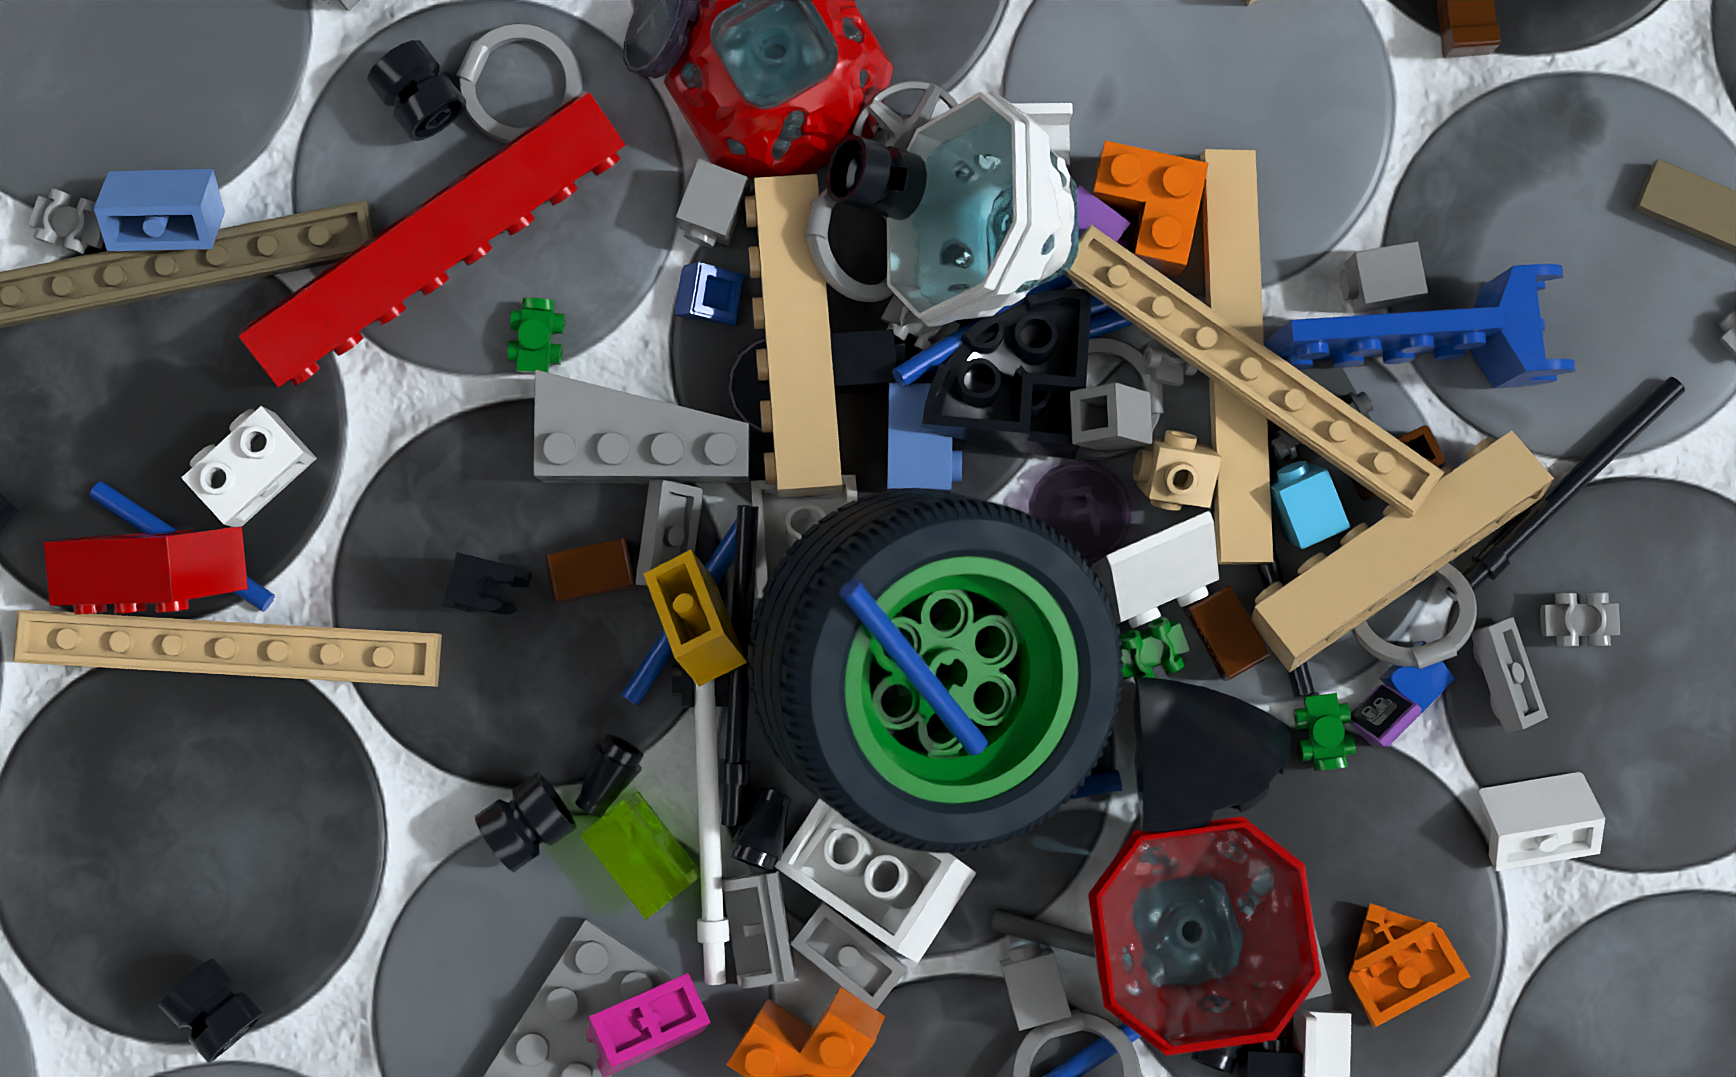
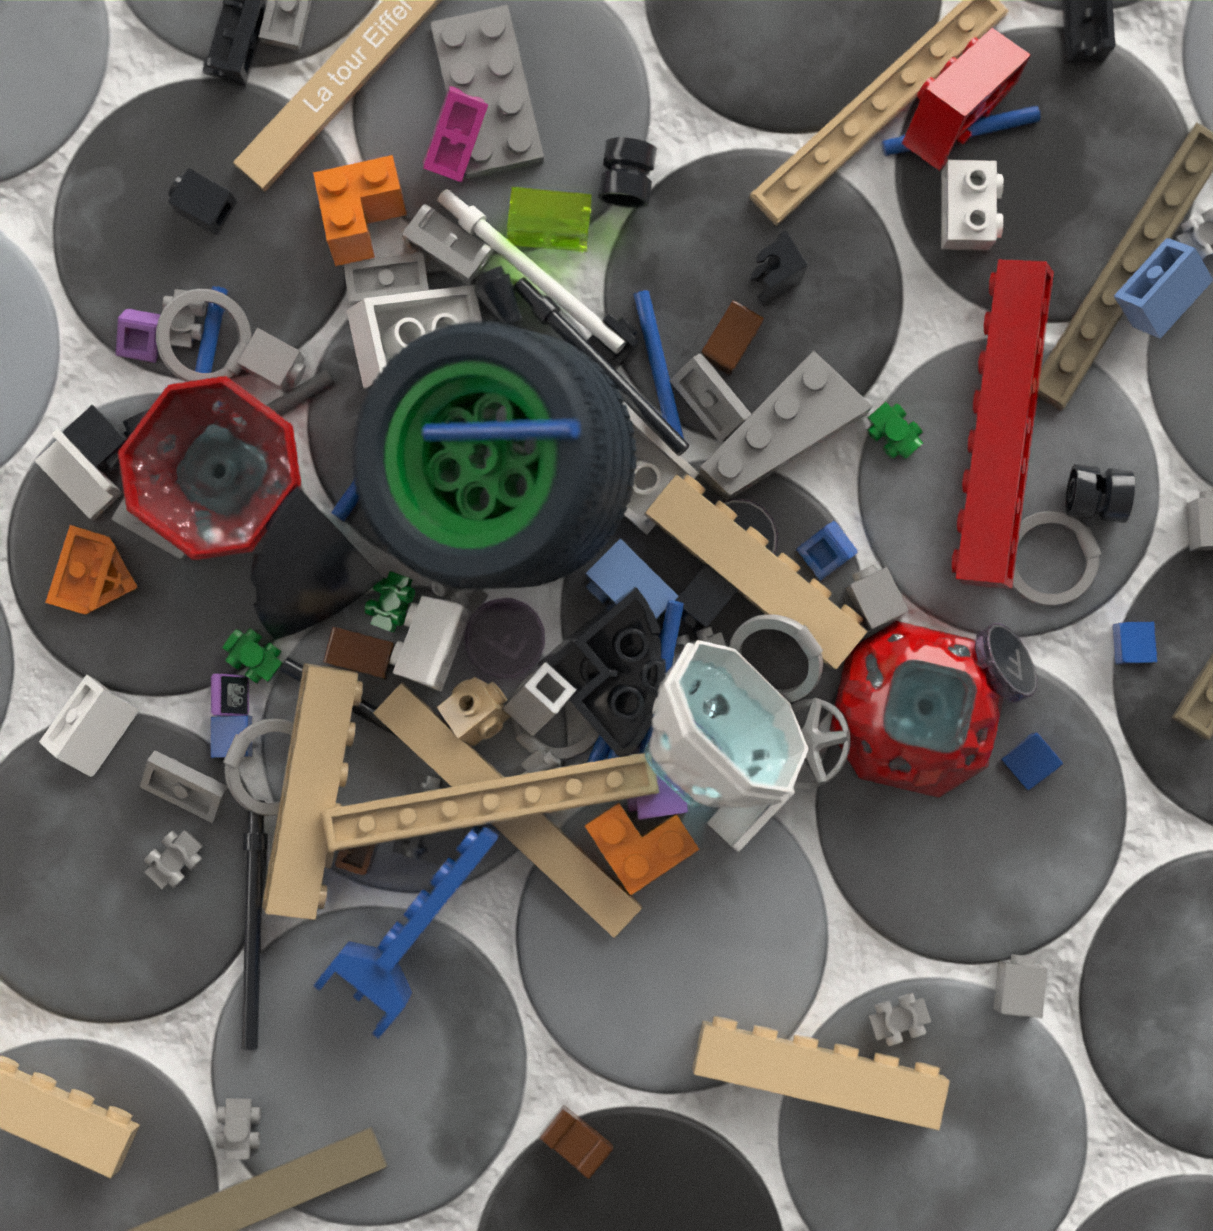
camera: 125 degrees right, 0 degrees up
(609, 772) = (610, 242): black cone -> none
(694, 618) = (649, 361): yellow brick -> none
(876, 177) = (801, 696): black wheel -> none
(1307, 504) = (386, 765): medium azure brick -> none
(1384, 277) = (471, 937): light grey brick -> none

